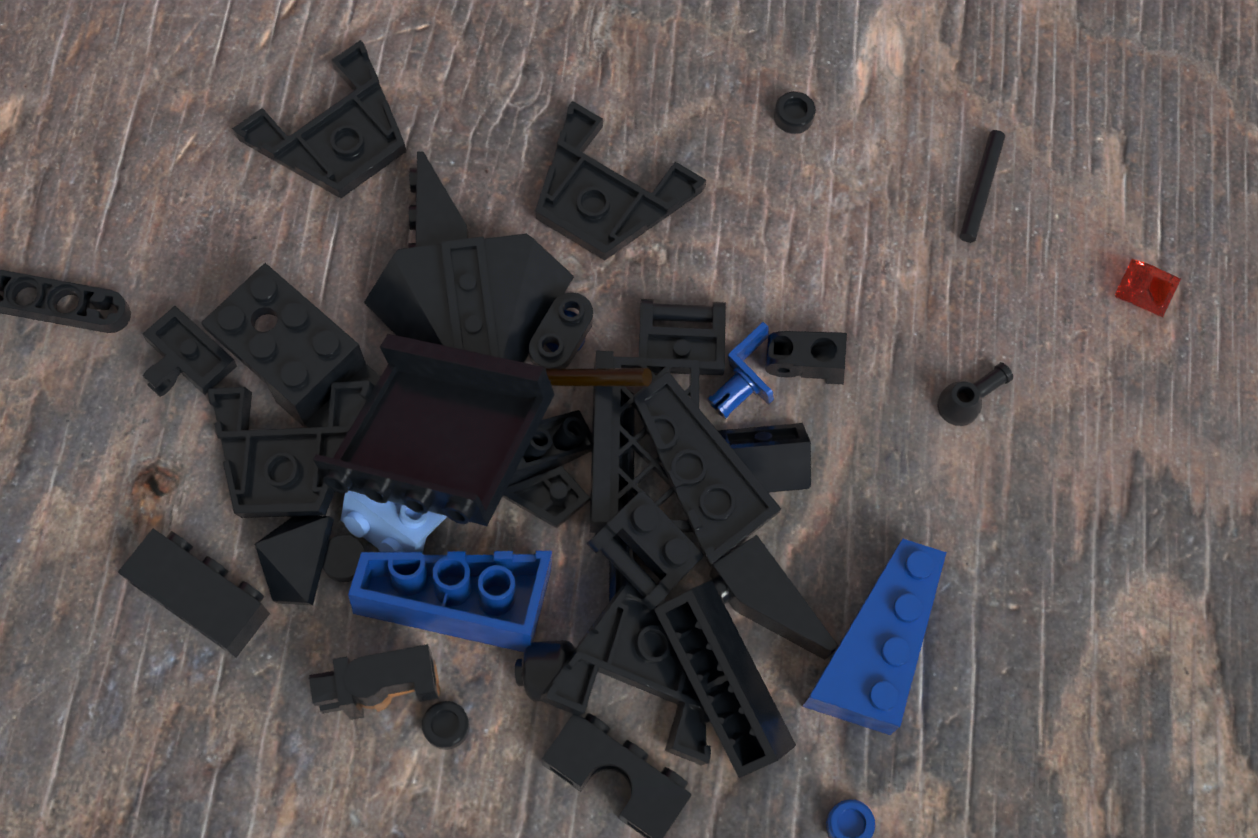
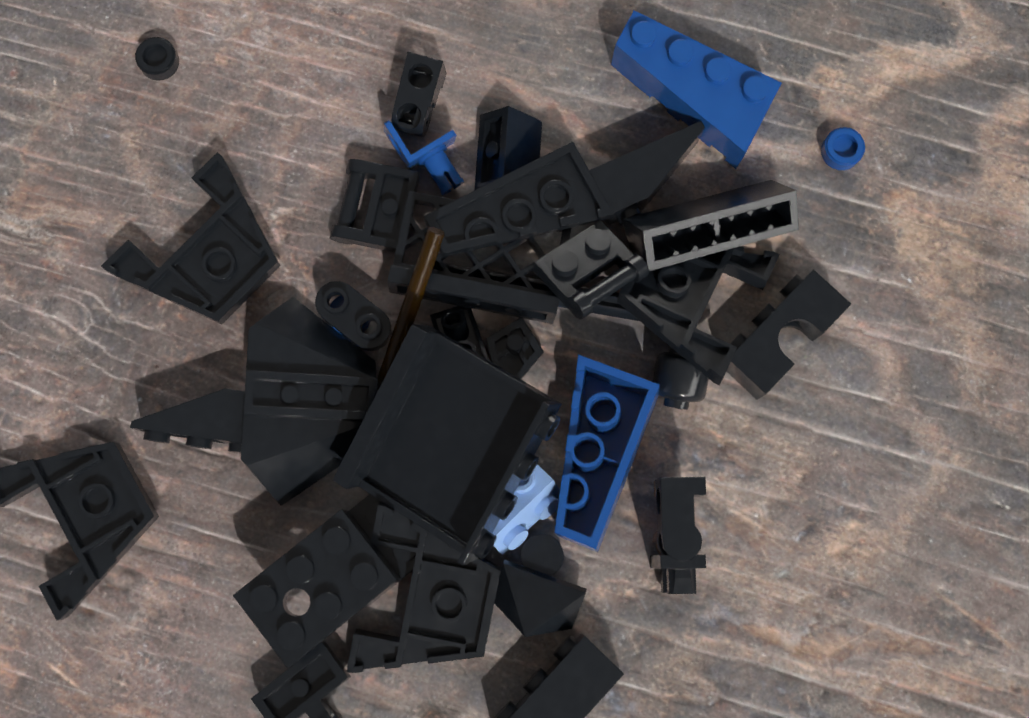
camera: 80 degrees left, 10 degrees up
(445, 725) = (719, 479): black tile -> none

